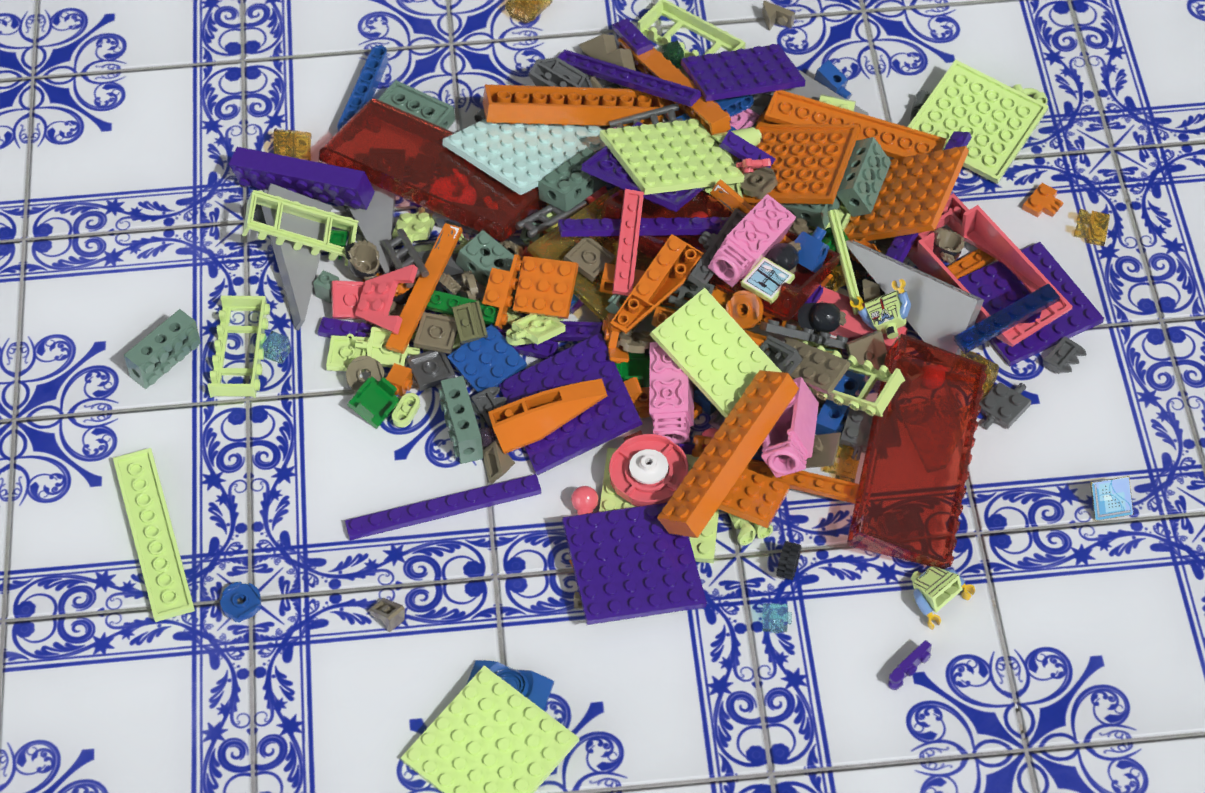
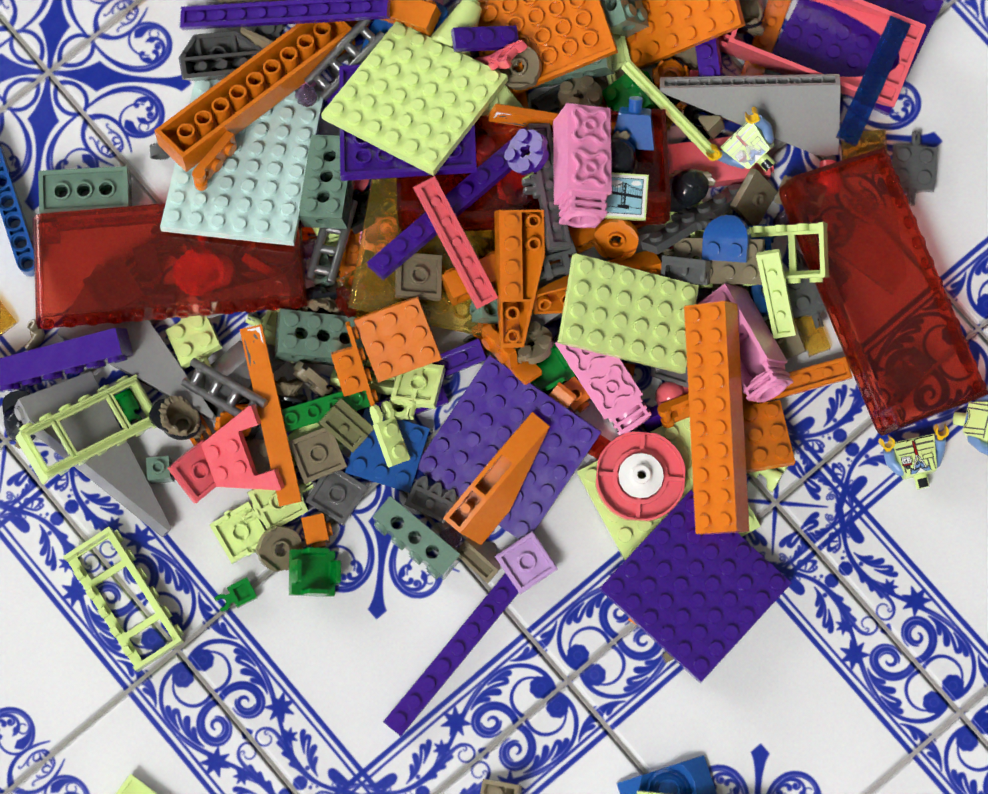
camera: 35 degrees left, 25 degrees up
(162, 349) = (48, 647): sand green brick -> none
(276, 347) = (165, 576): clear light blue brick -> none
(315, 388) = (239, 593): none -> green plate
(342, 328) = (211, 507): dark purple hinge -> none
(404, 411) = (348, 559): yellowish green plate -> none
(493, 345) = (389, 434): none -> yellowish green hinge
(509, 123) = (214, 160): none -> orange plate
(525, 480) = (526, 562): none -> lavender tile
(584, 500) = (598, 547): coral piece -> none
(601, 125) = (306, 95): none -> clear purple plate
(721, 219) = (516, 150): none -> plate
(775, 618) = (861, 552): clear light blue brick -> none
(789, 560) = (835, 484): black tyre -> none
(821, 348) = (726, 240): none -> blue slope
(833, 403) = (776, 293): none -> yellowish green plate
(866, 581) = (916, 456): none -> torso
(1063, 355) = (933, 72): dark grey plate -> none

